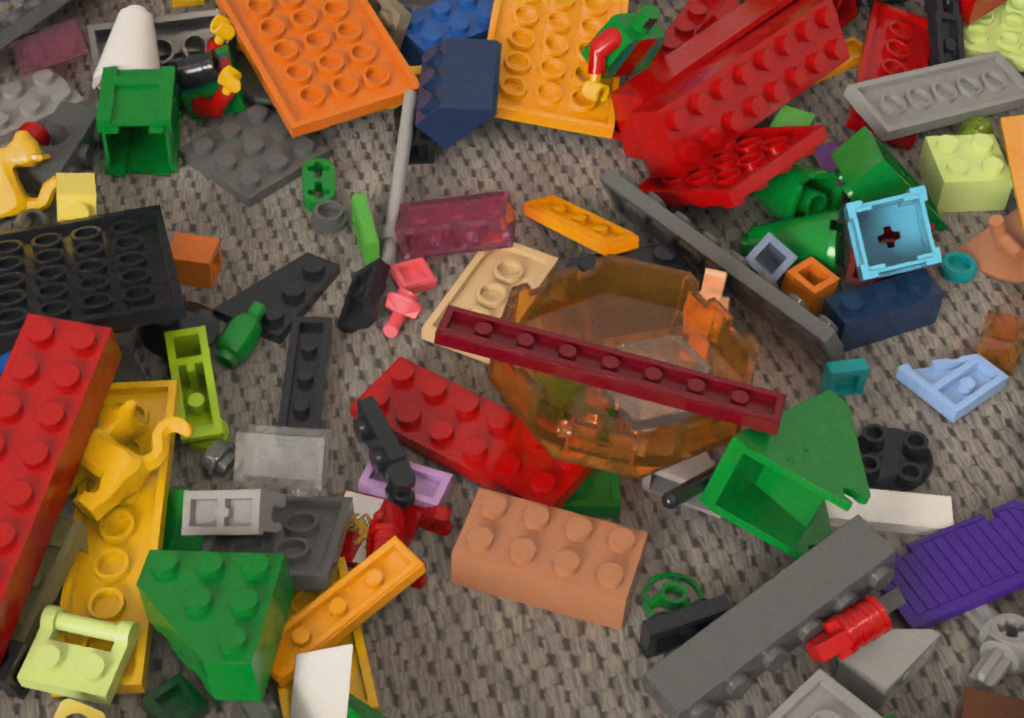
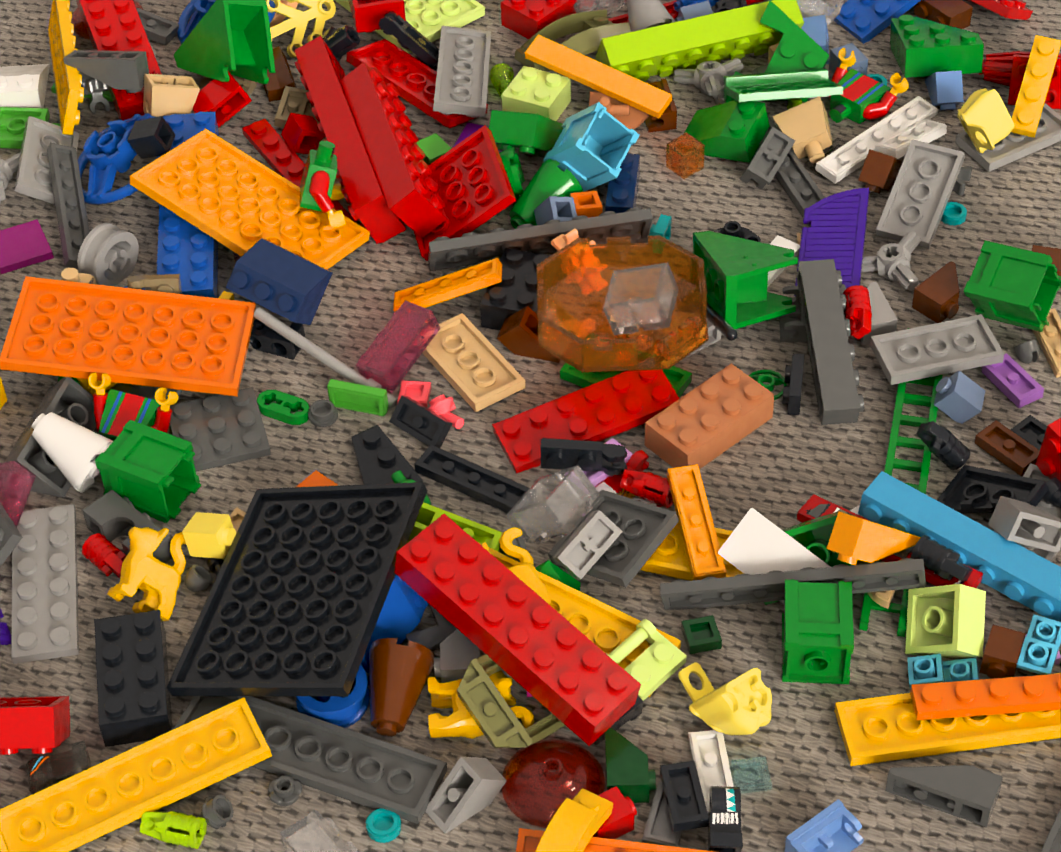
camera: 55 degrees left, 0 degrees up
(197, 68) = (133, 408): black hinge -> none
(220, 614) = (675, 570): green brick -> none
(611, 369) = (640, 304): dark red tile -> none
(954, 384) = (697, 192): light blue wing -> none

